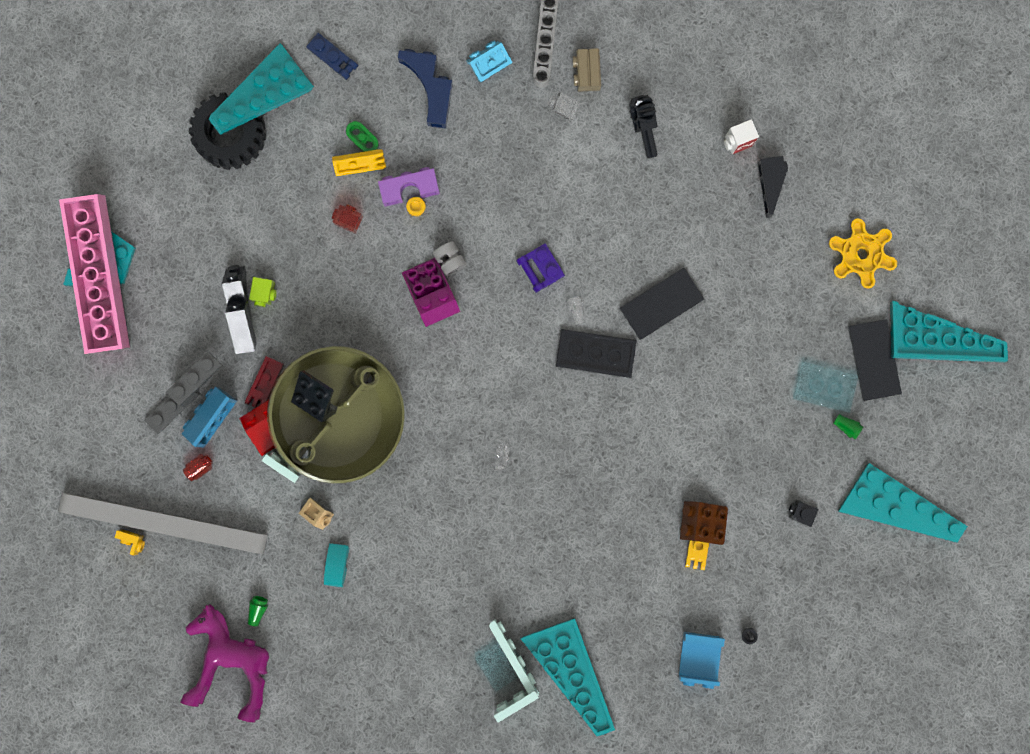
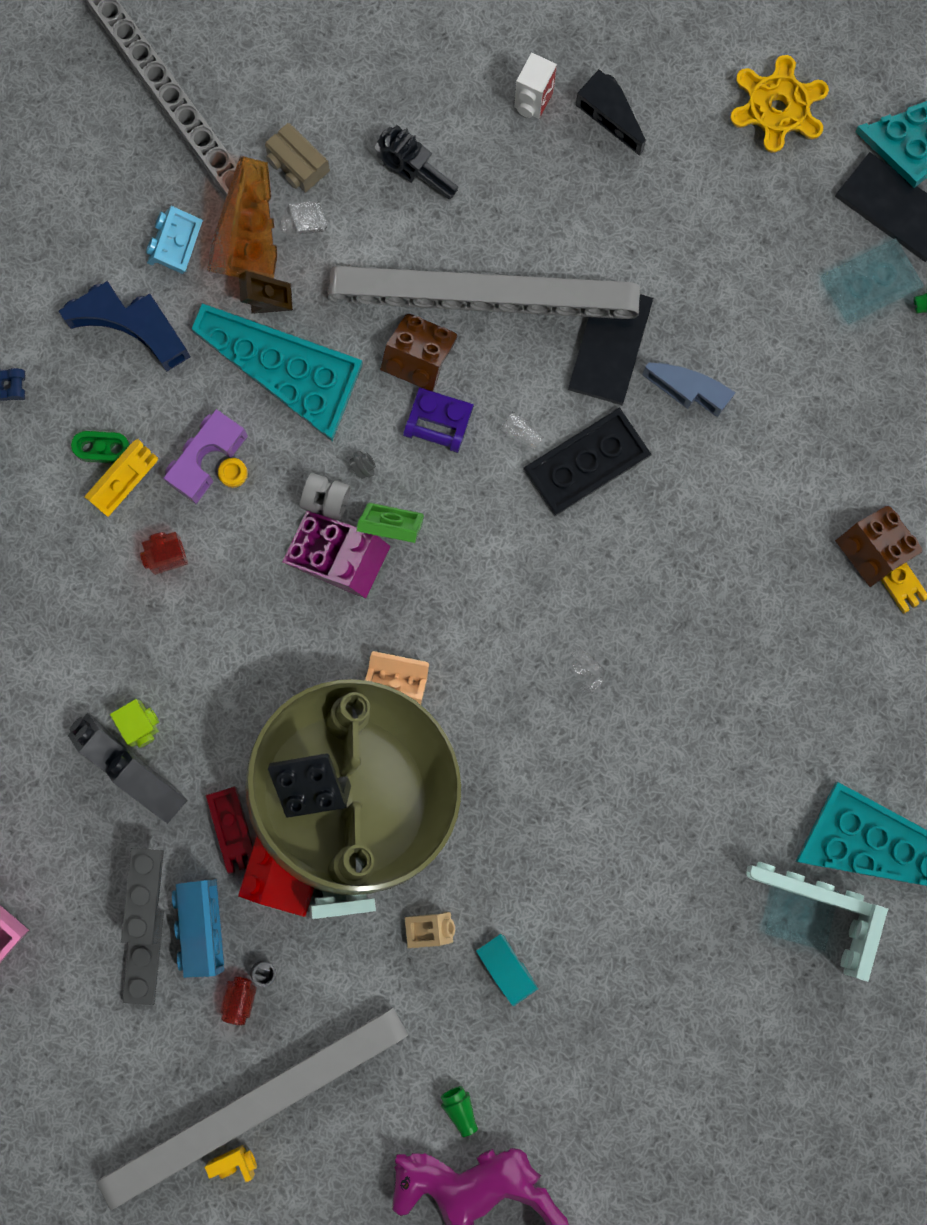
camera: 45 degrees left, 5 degrees down
(217, 467) = (259, 979): none -> black hinge
(407, 379) = (399, 673): none -> light nougat bracket
(469, 300) = (390, 522): none -> bright green tile
(482, 258) = (362, 464): none -> dark grey plate
(491, 182) = (296, 371): none -> teal wing
(510, 128) = (265, 293): none -> dark brown slope
(524, 89) = (245, 228): none -> clear orange wedge
(561, 223) = (417, 351): none -> reddish brown bracket
(620, 223) = (485, 292): none -> light grey beam
(680, 360) = (689, 386): none -> sand blue slope

